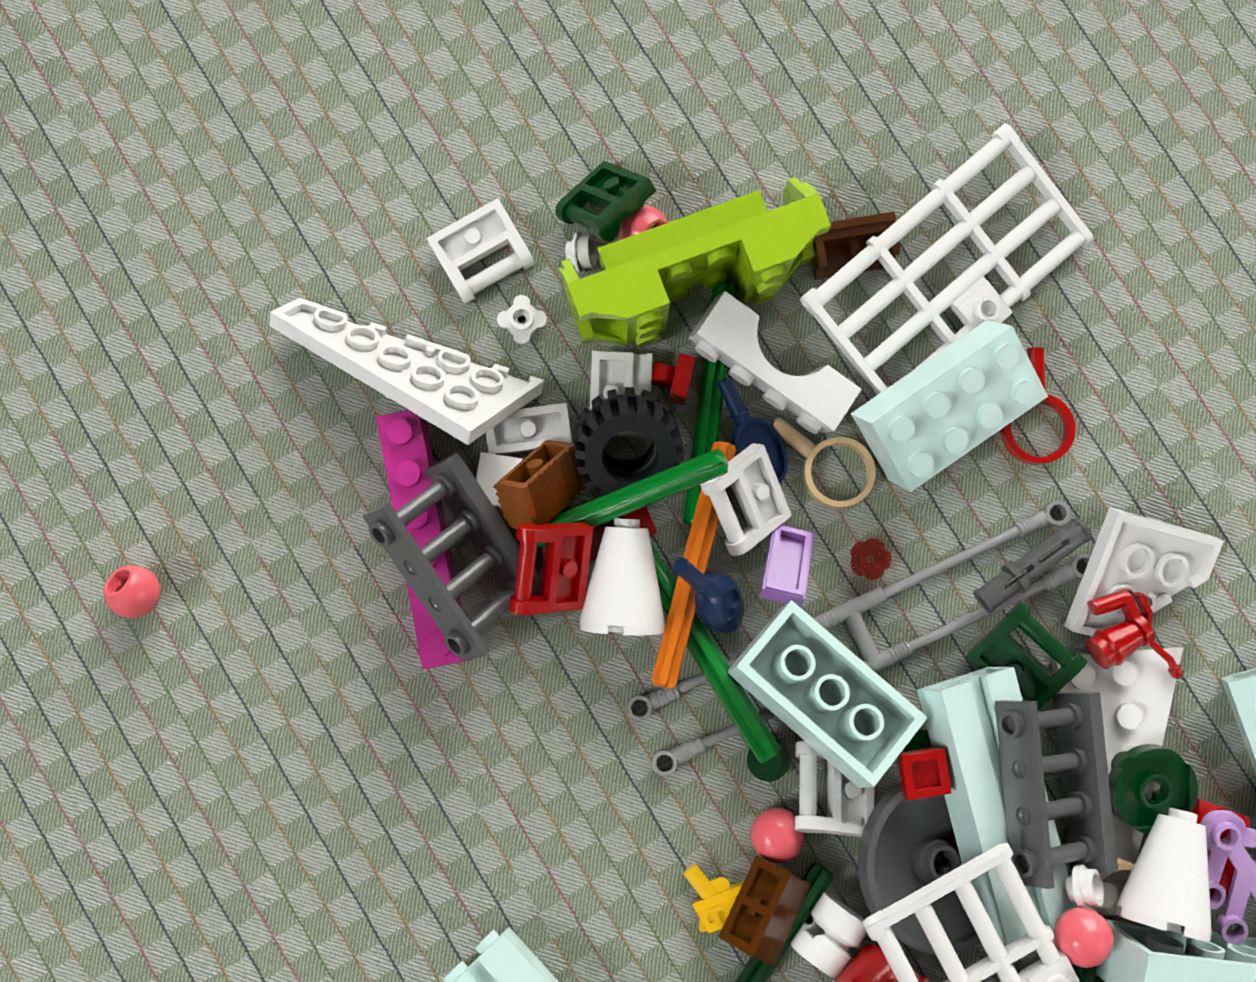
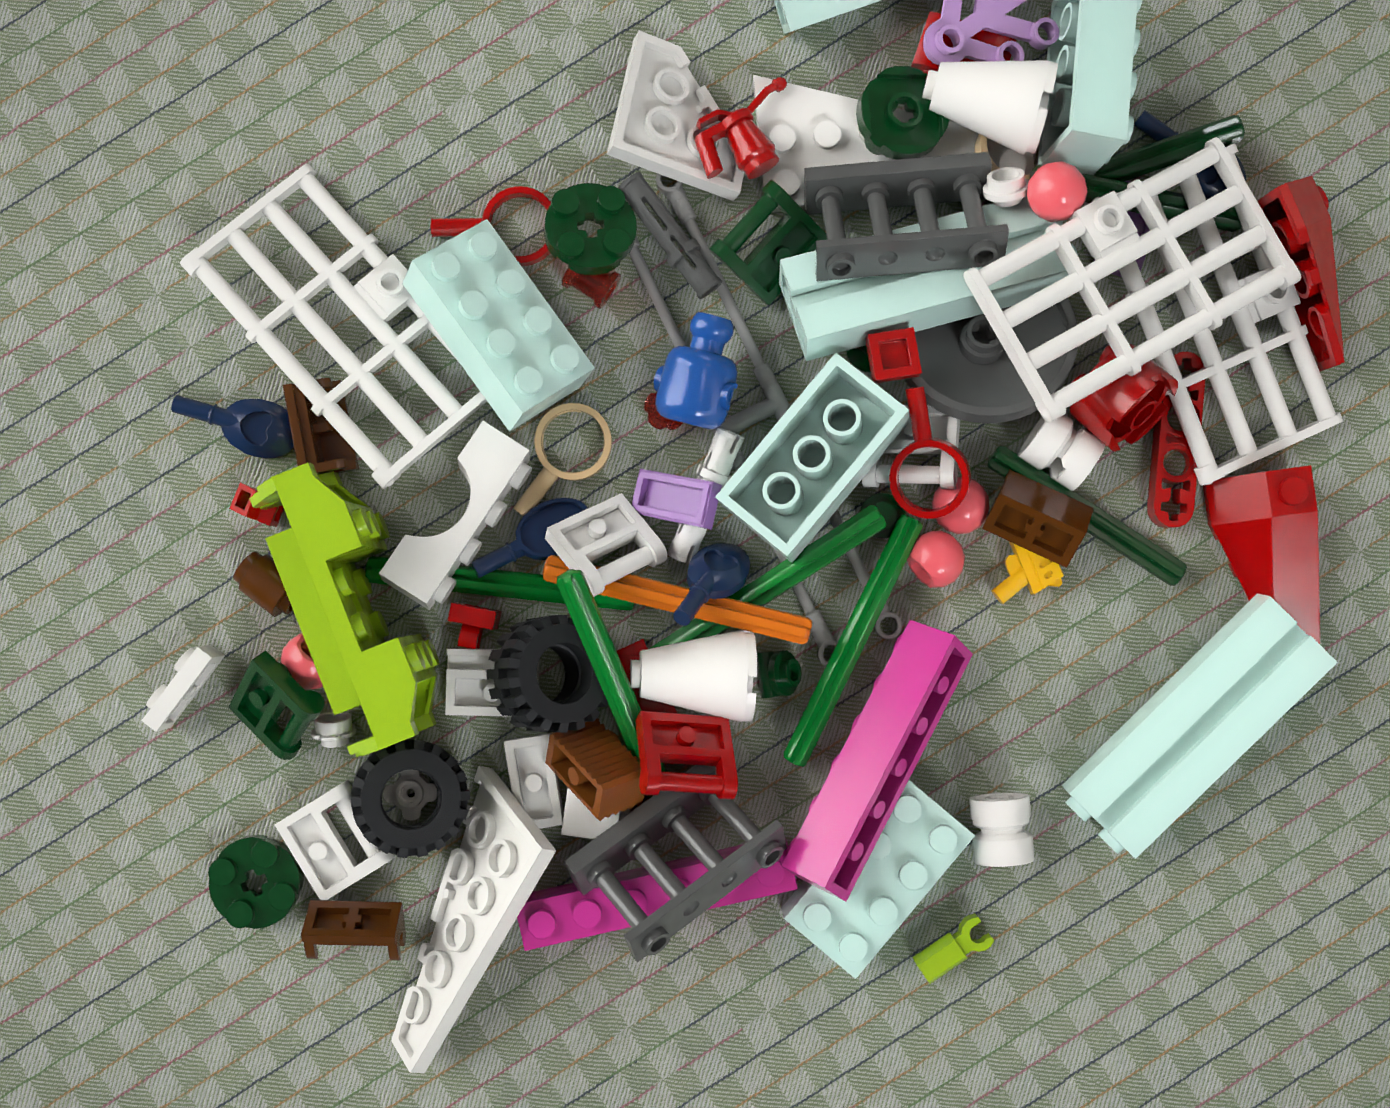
camera: 90 degrees left, 5 degrees up
(358, 815) = (951, 950): none -> lime bar
(405, 266) = (354, 924): none -> reddish brown hinge
(433, 745) = (903, 867): none -> light aqua brick
(440, 159) = (243, 905): none -> dark green plate
(466, 867) = (1002, 835): none -> white wheel
(526, 279) = (421, 837): none -> black tyre
(541, 749) = (877, 759): none -> dark pink brick
(622, 657) = (778, 673): none -> dark green plate
(634, 129) = (170, 701): none -> white plate
(653, 728) = (852, 640): none -> green axle
(714, 189) = (262, 583): none -> reddish brown brick
(727, 810) = (936, 559): none -> coral piece
(775, 196) = (243, 506): none -> red piece
(815, 604) = (714, 469): none -> white pin
(844, 799) = (923, 438): none -> red piece
(856, 183) = (249, 424): none -> dark blue piece
(901, 587) = (697, 379): none -> blue piece
(989, 491) = (594, 286): none -> clear red bush
(1061, 496) = (590, 203): none -> dark green plate

